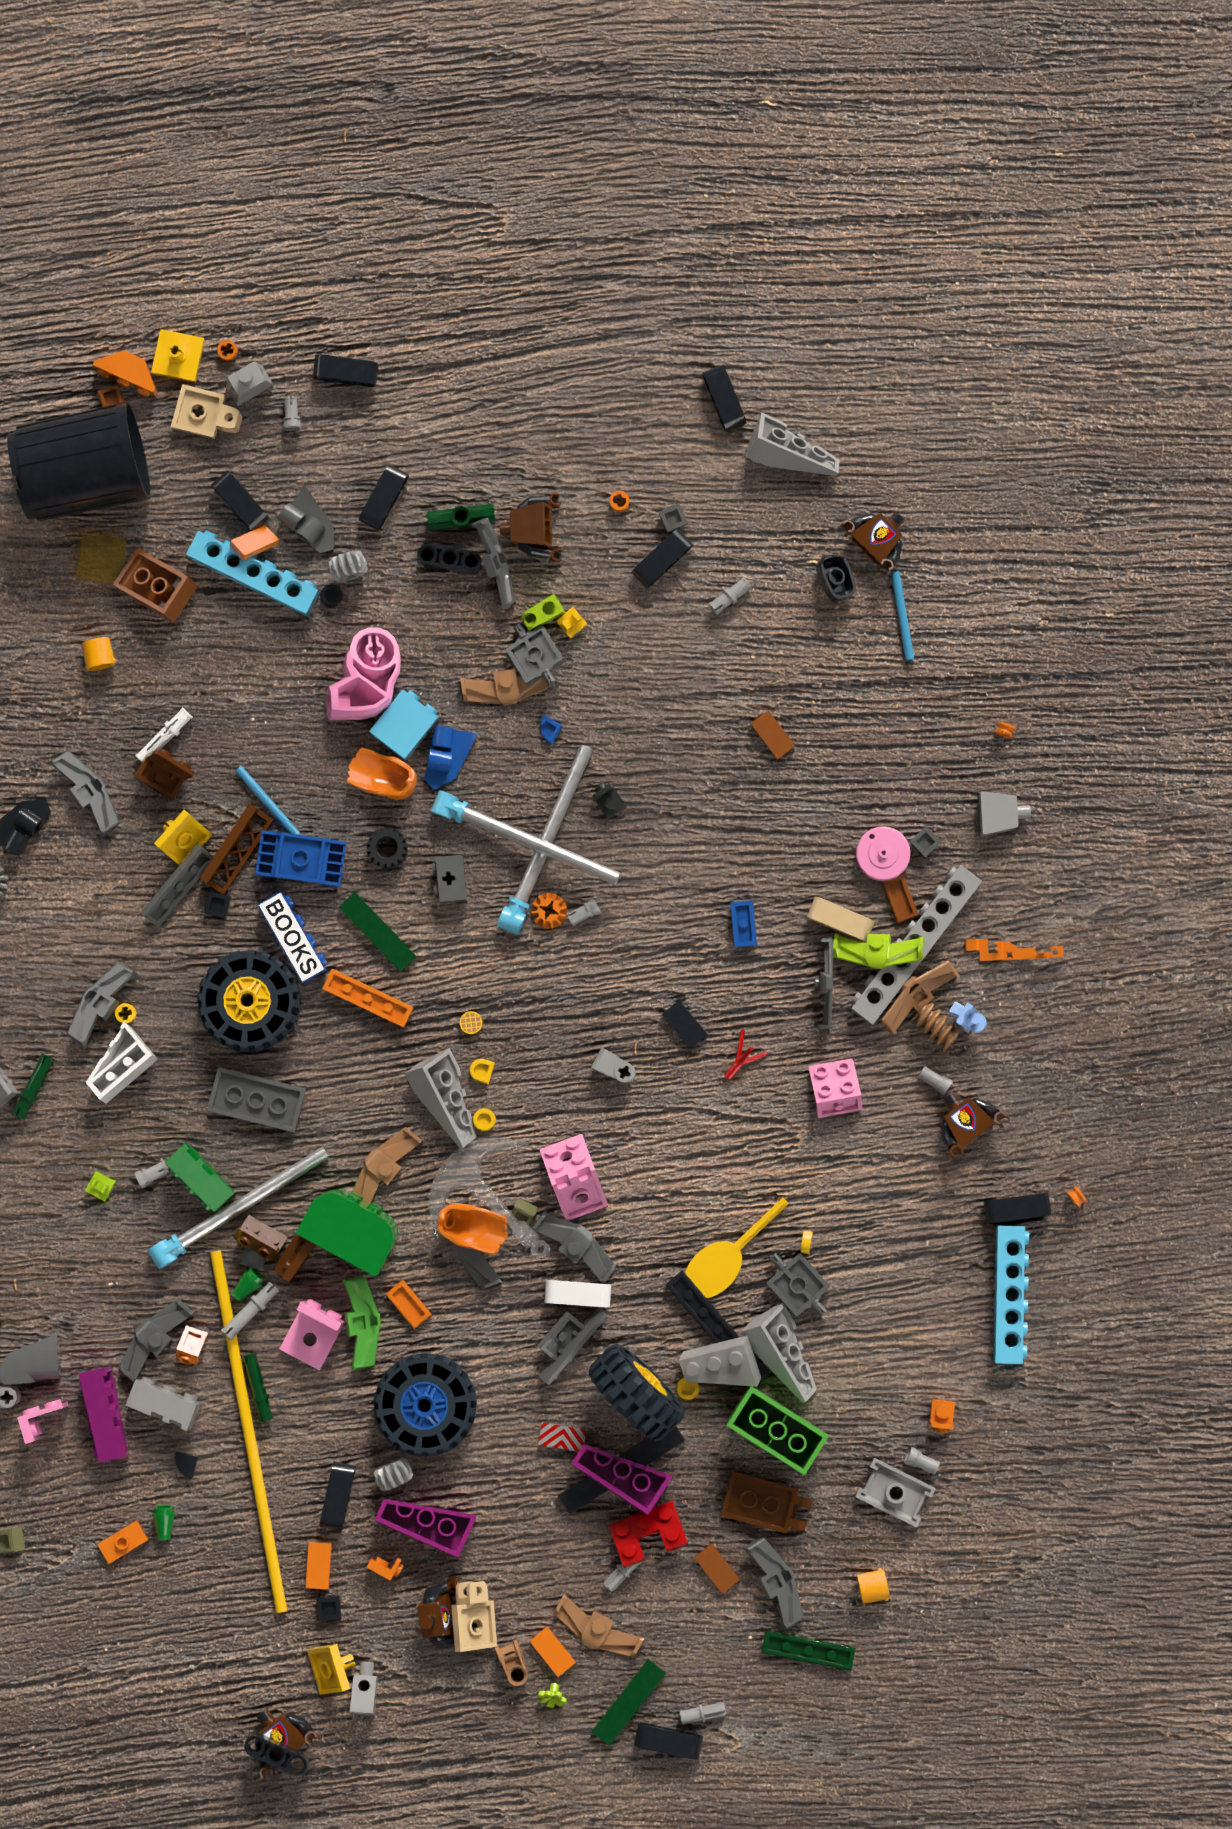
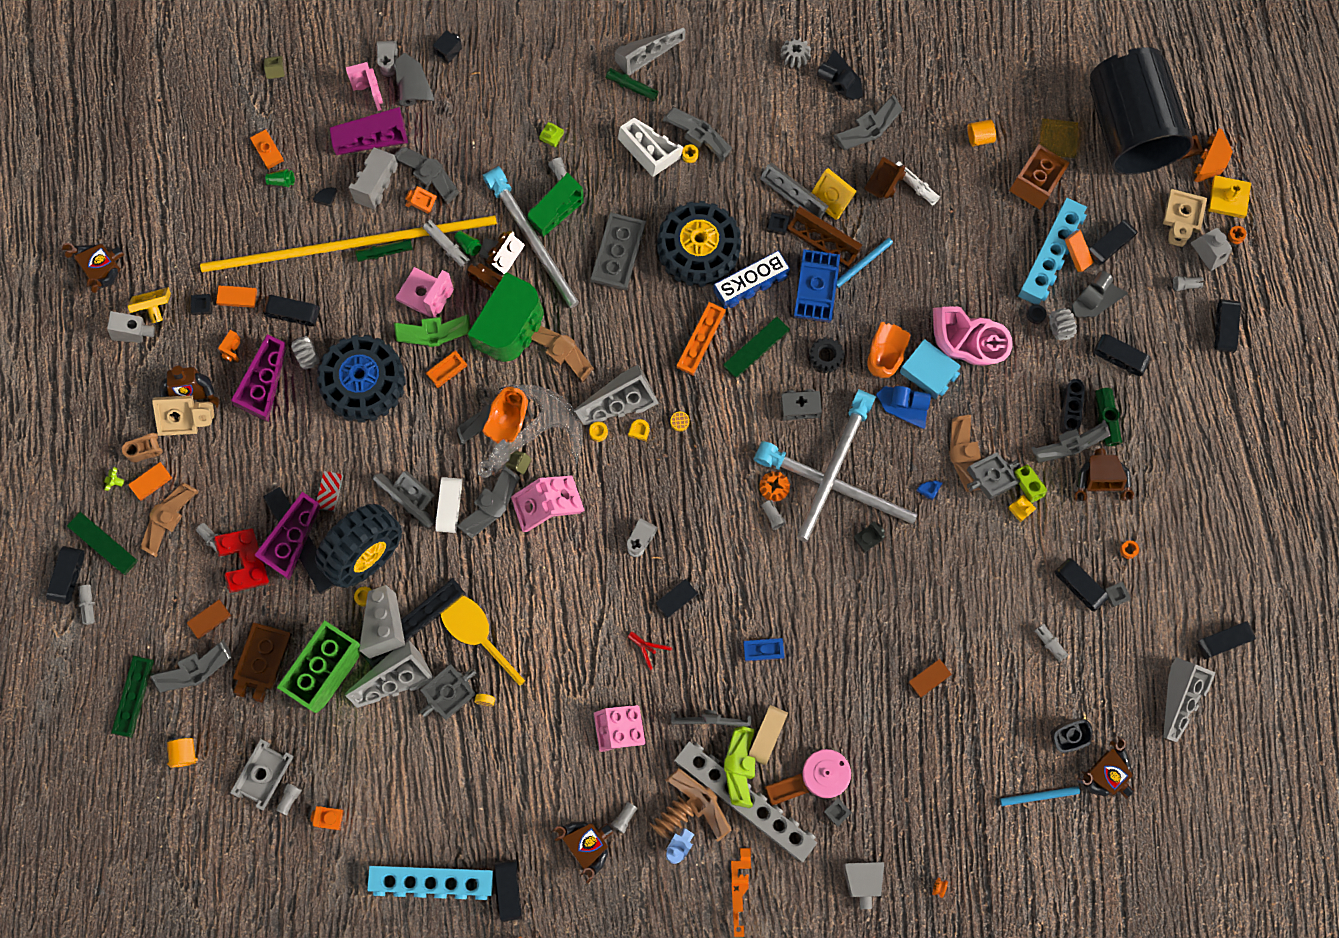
camera: 85 degrees right, 10 degrees down
(288, 1752) = (82, 247): black beam -> none

